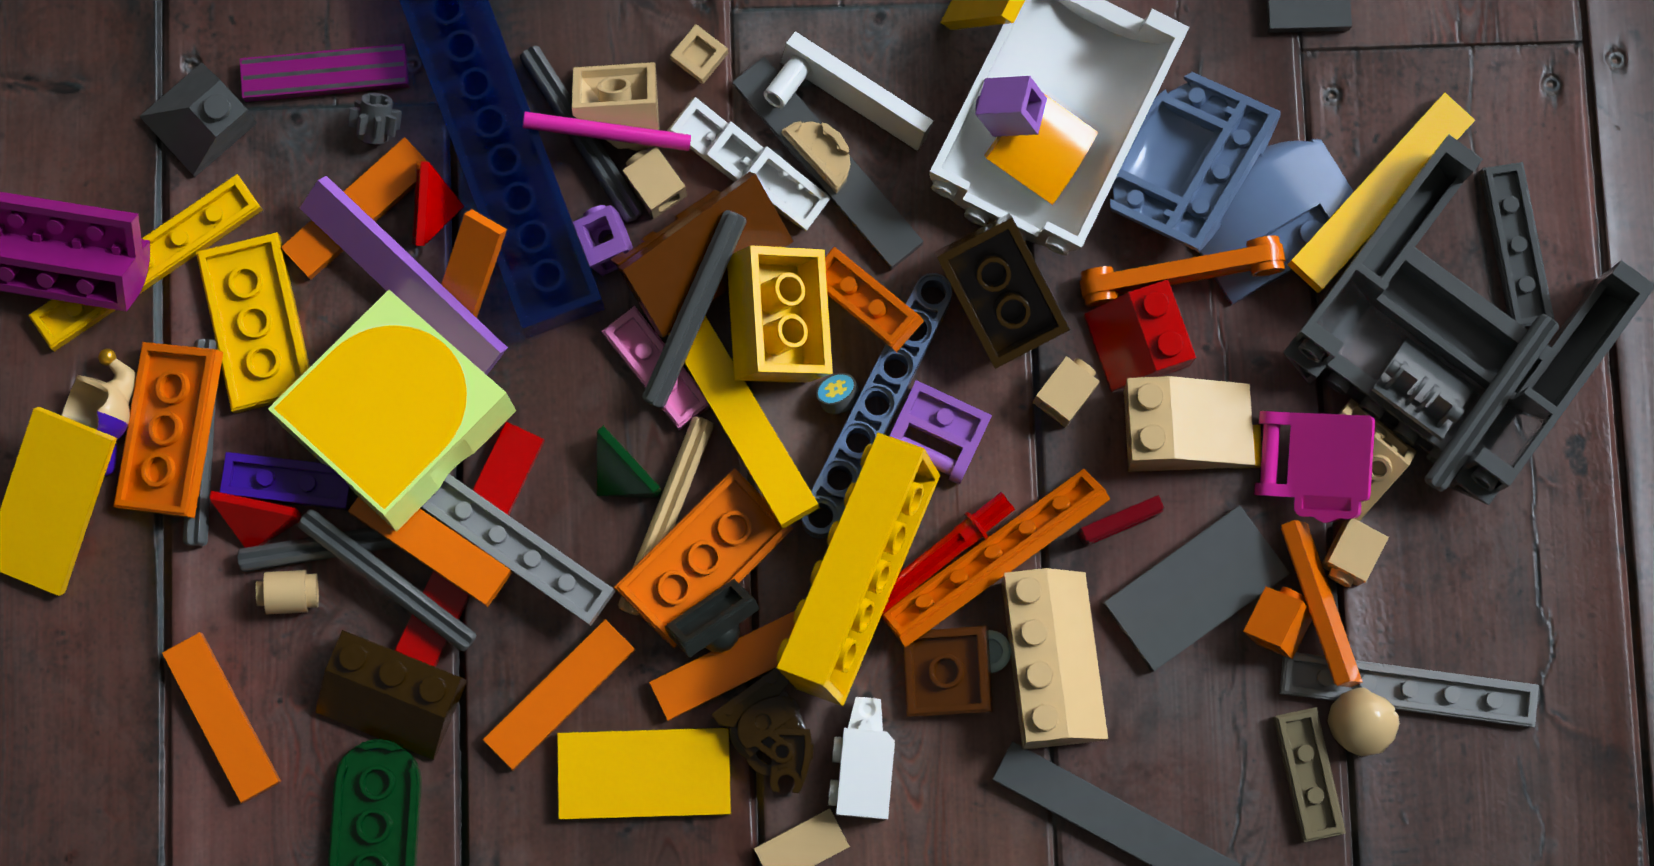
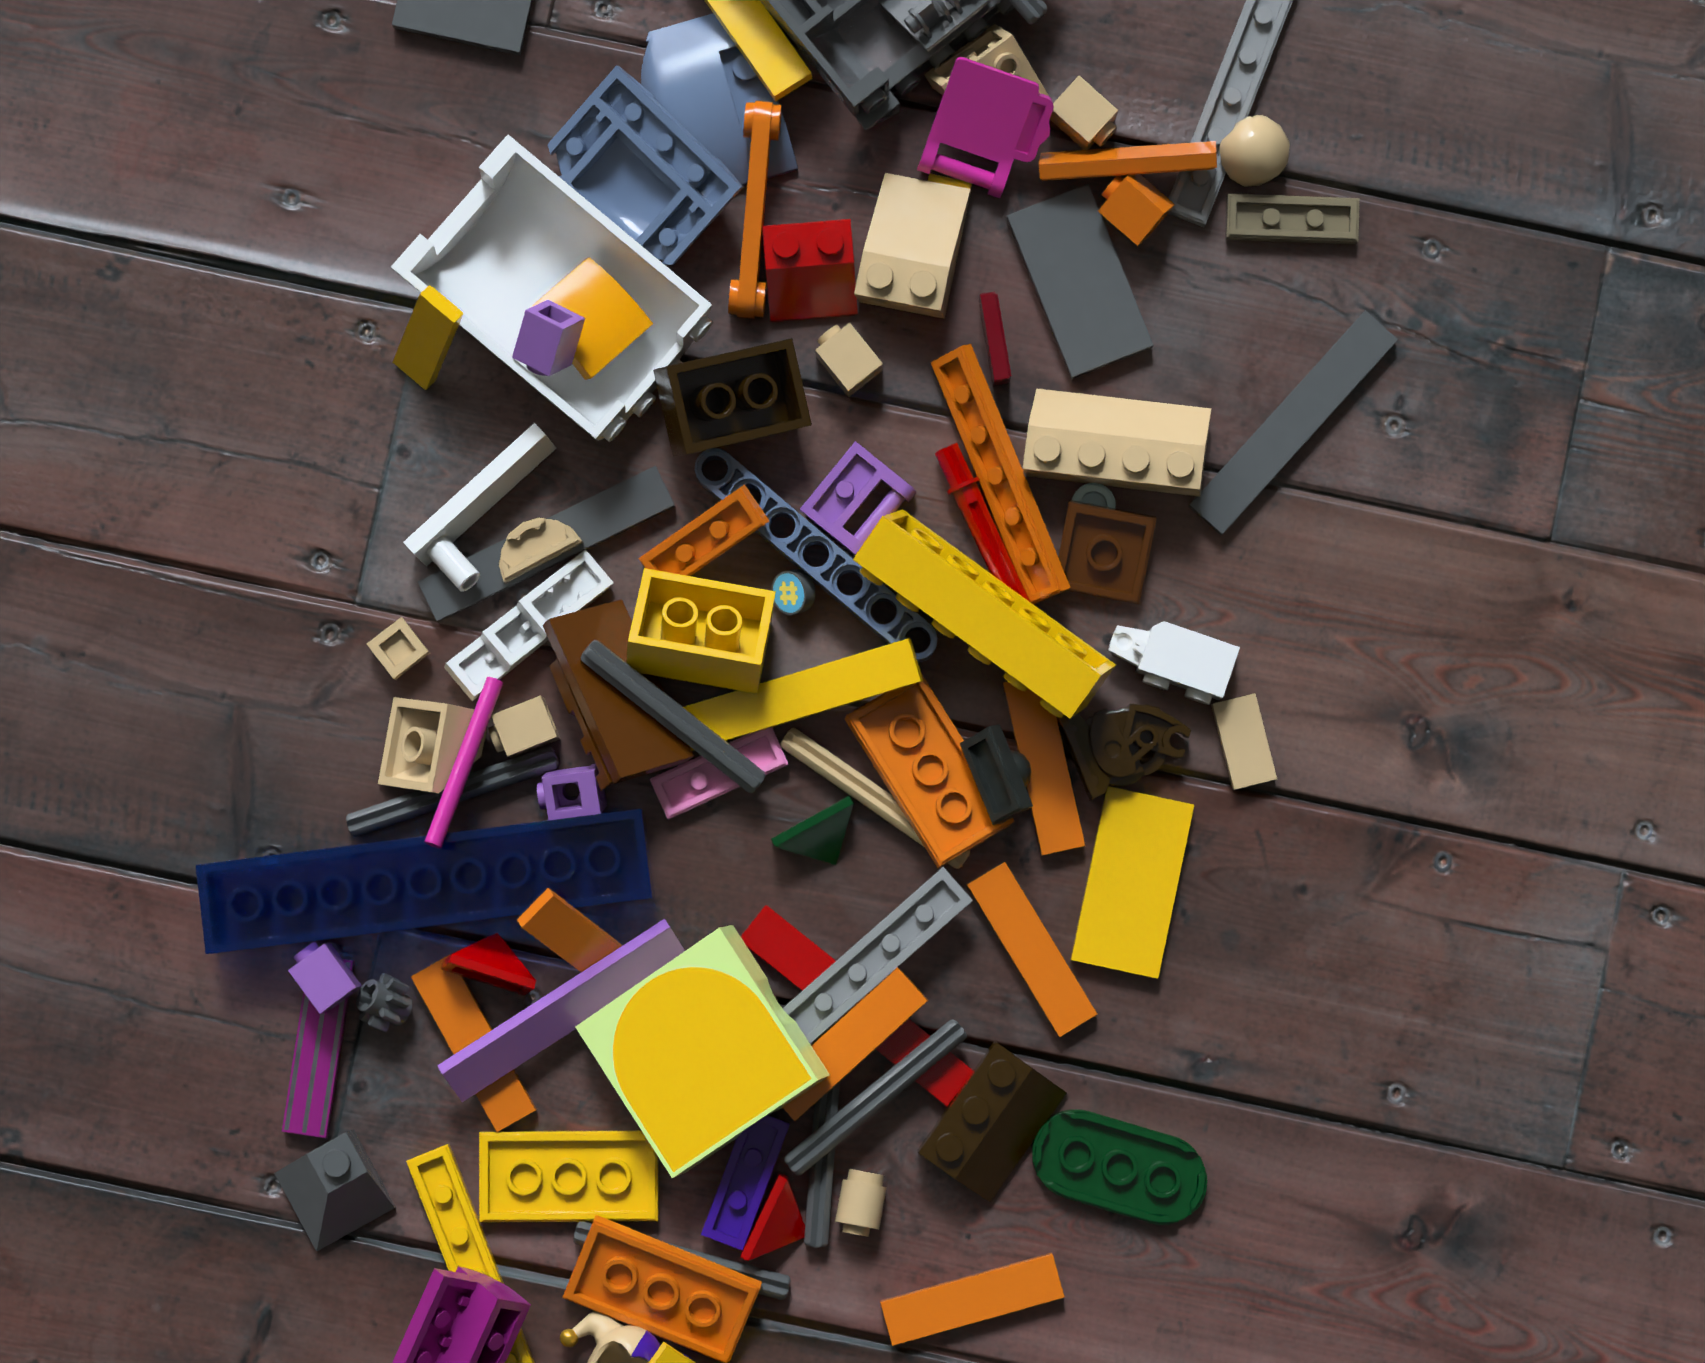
camera: 70 degrees left, 5 degrees up
(384, 58) = (323, 976): none -> medium lavender brick

